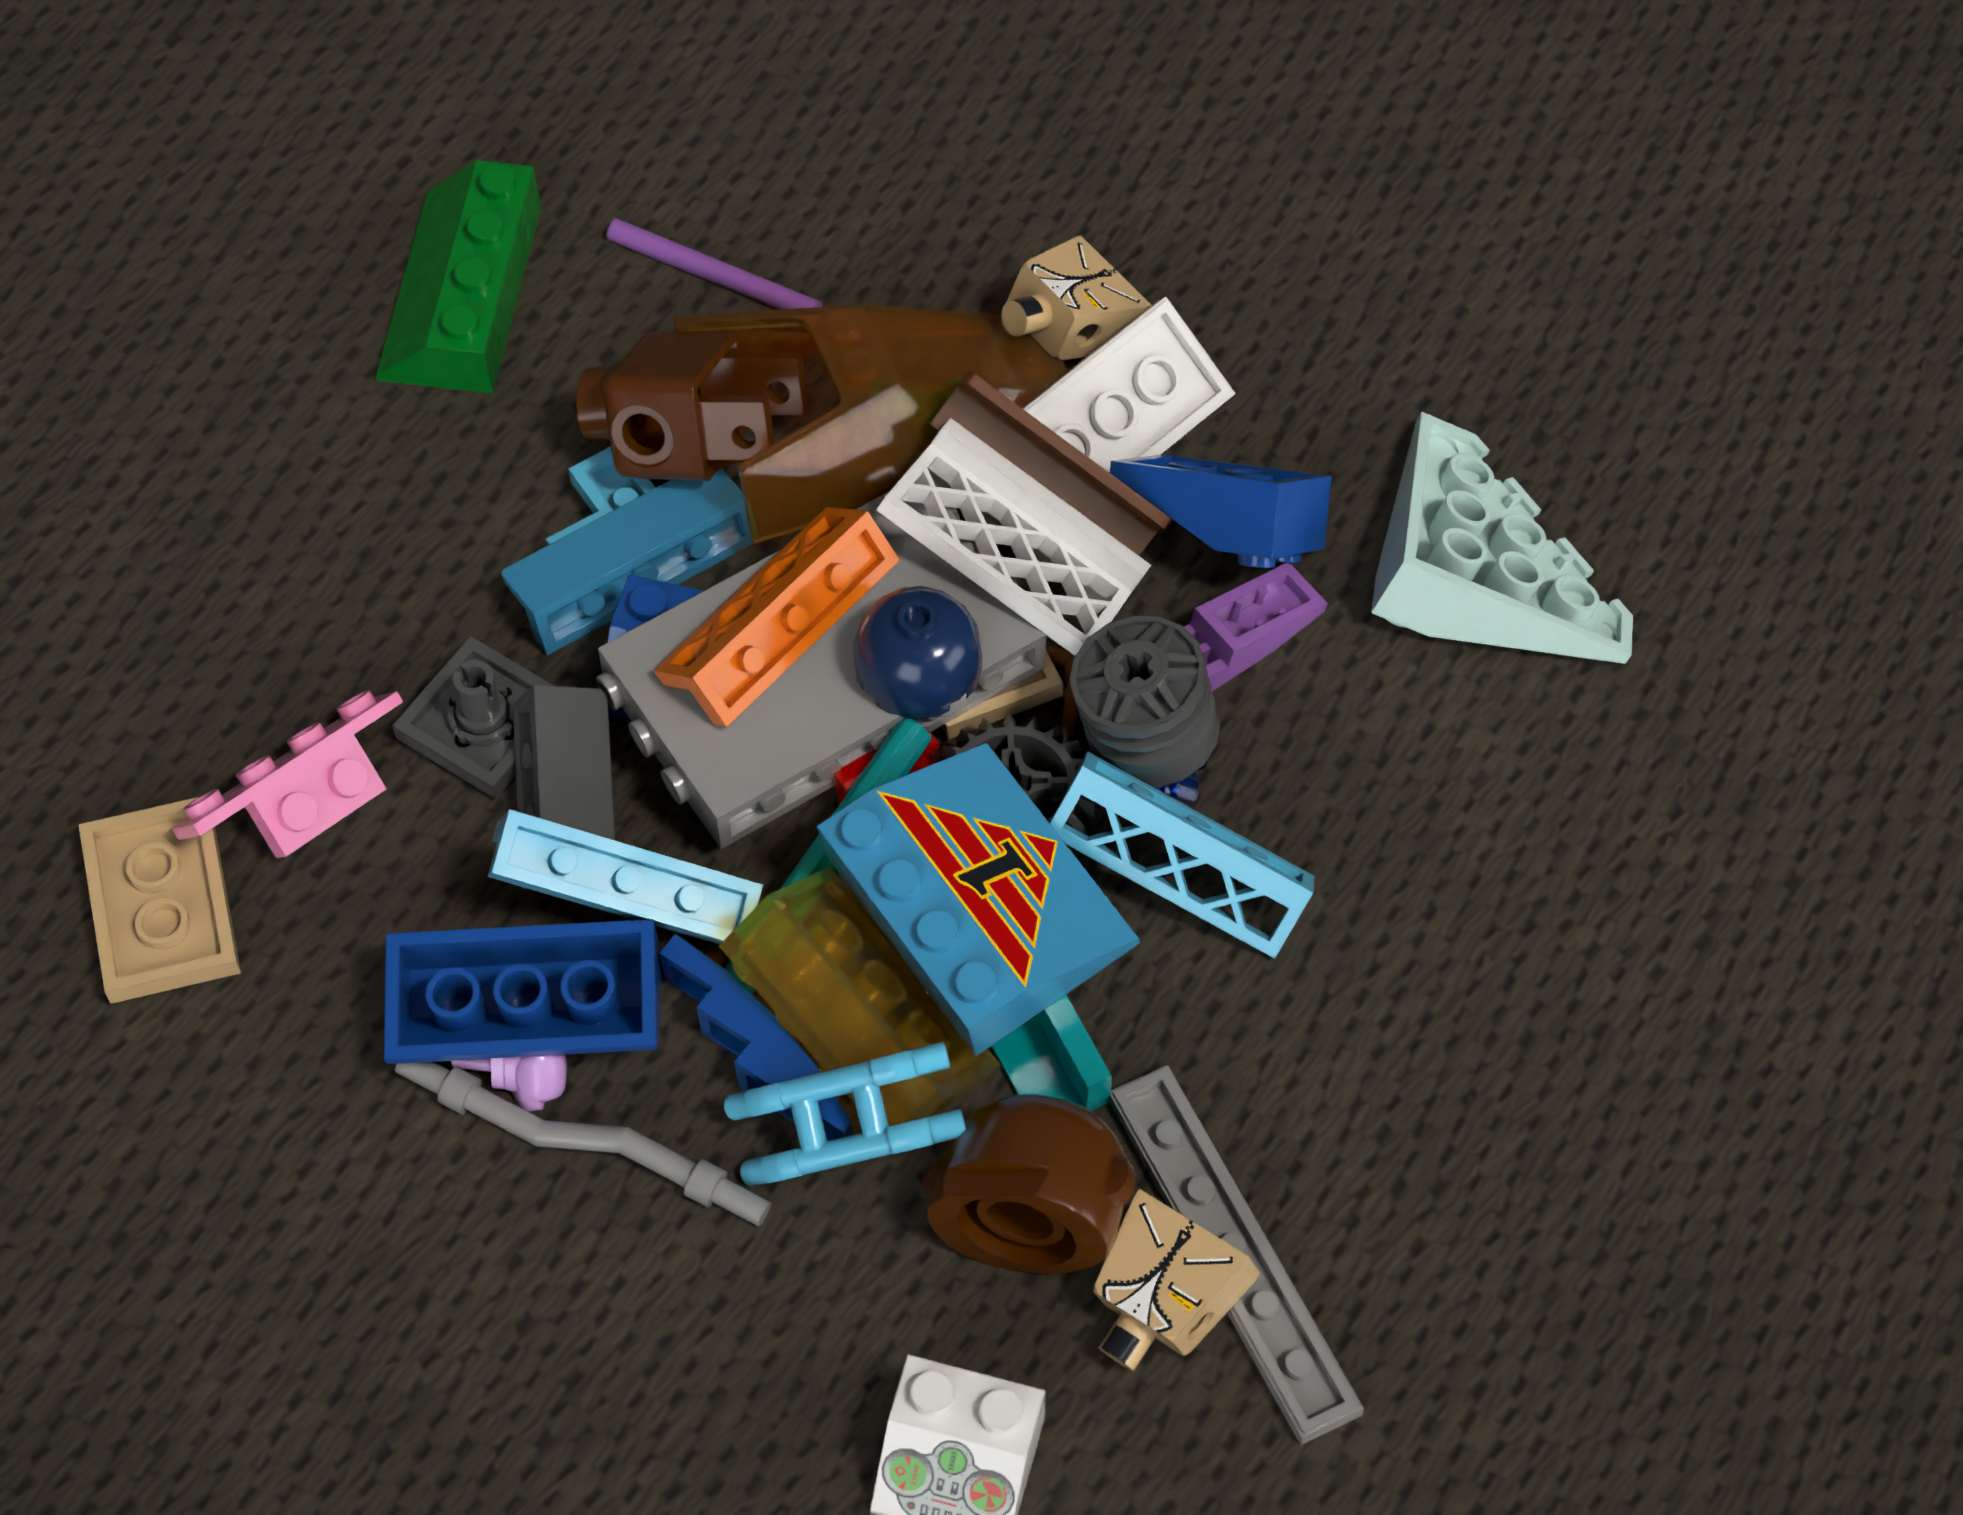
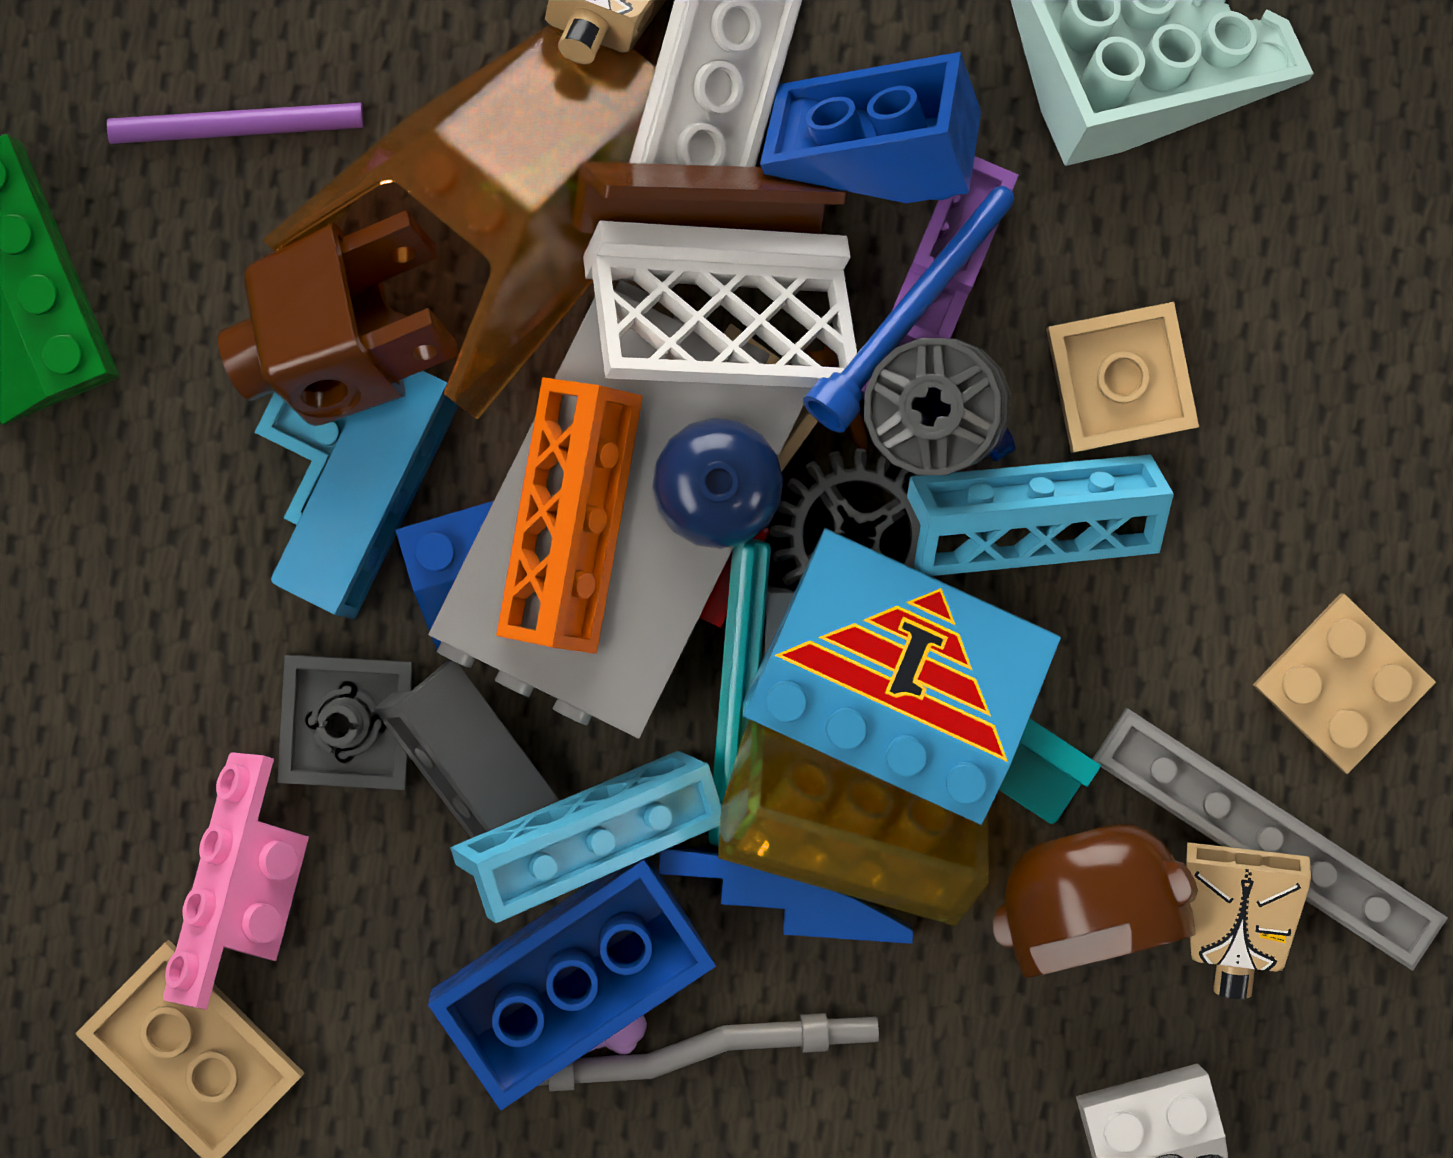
camera: 30 degrees left, 30 degrees up
(876, 1137) = (921, 912): medium azure piece -> none
(1058, 638) = (837, 398): none -> blue piece
(1324, 799) = (1122, 377): none -> tan plate
(1382, 1154) = (1344, 683): none -> tan plate

